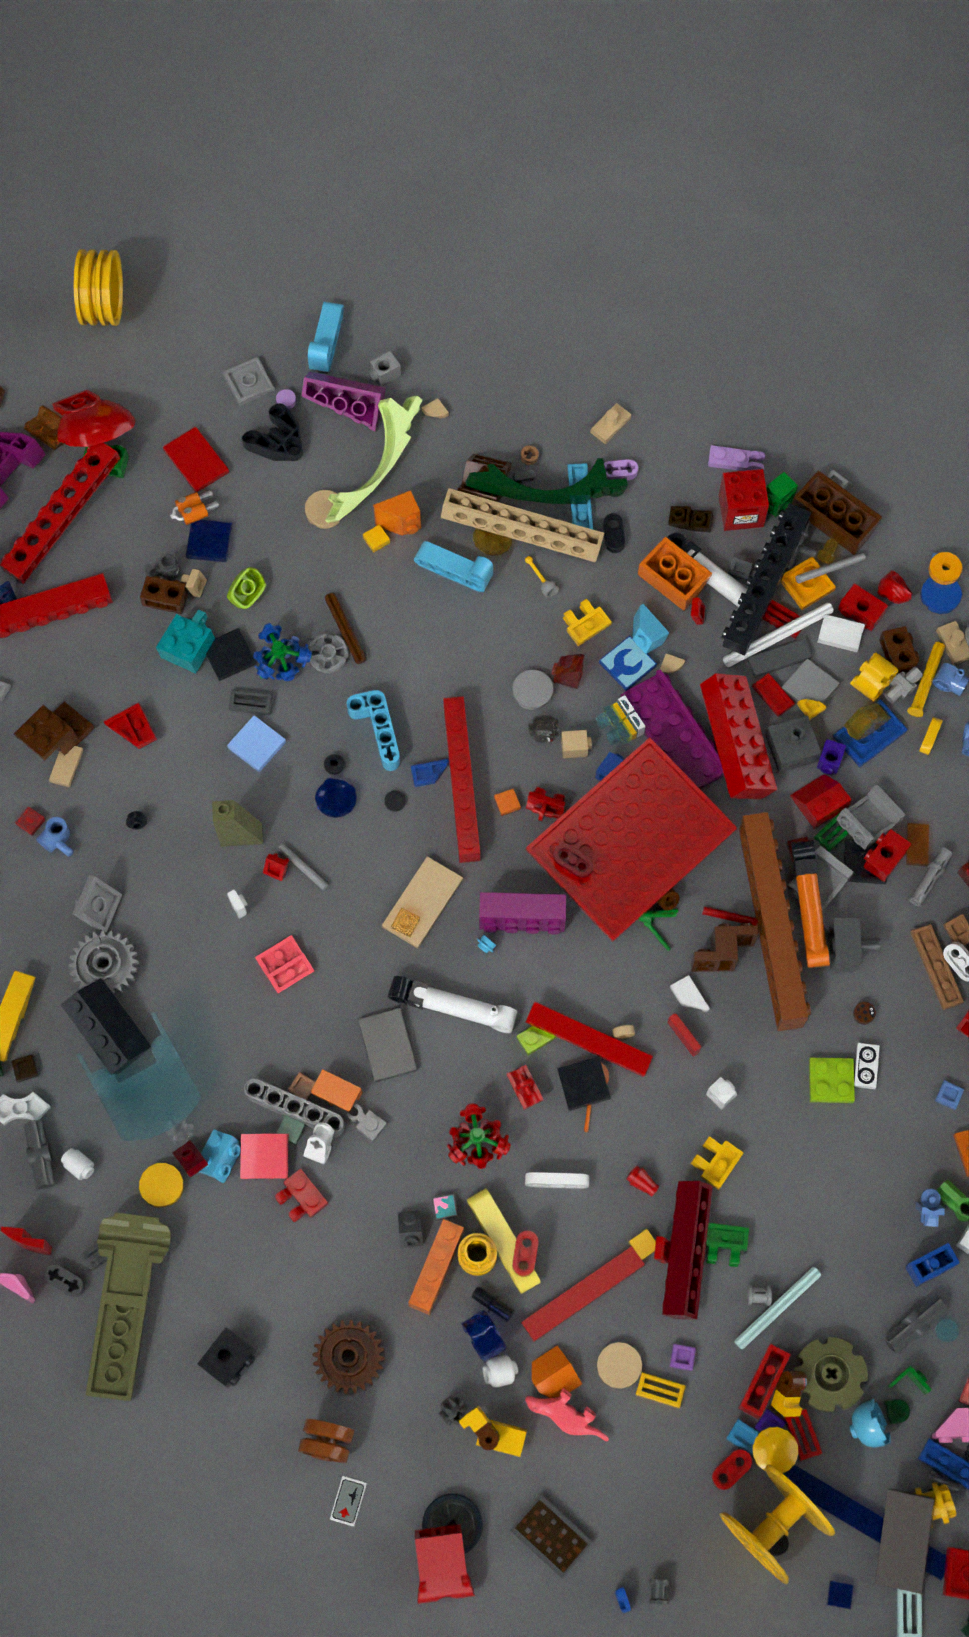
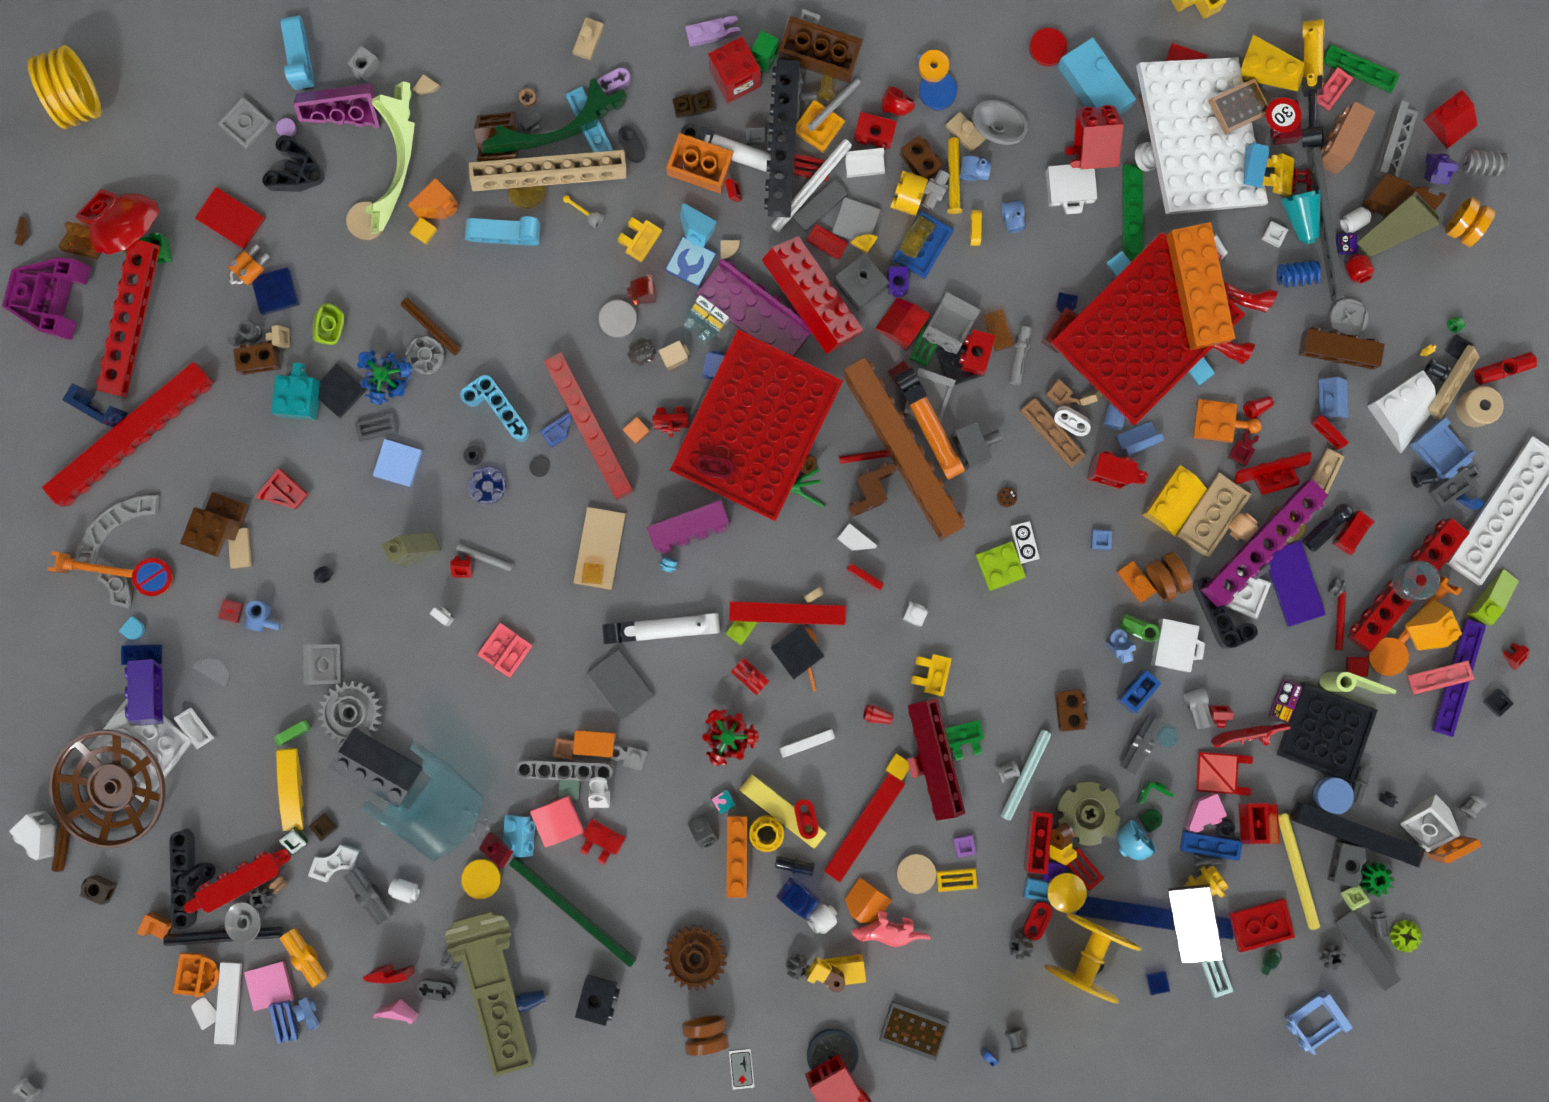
camera: 25 degrees left, 15 degrees up
(37, 961) = (292, 733): none -> bright green beam
(157, 1331) = (529, 1000): none -> dark blue cone
(241, 1256) = (572, 911): none -> dark green tile
(703, 1489) = (1021, 947): none -> dark grey gear
(846, 1255) = (1064, 711): none -> reddish brown brick

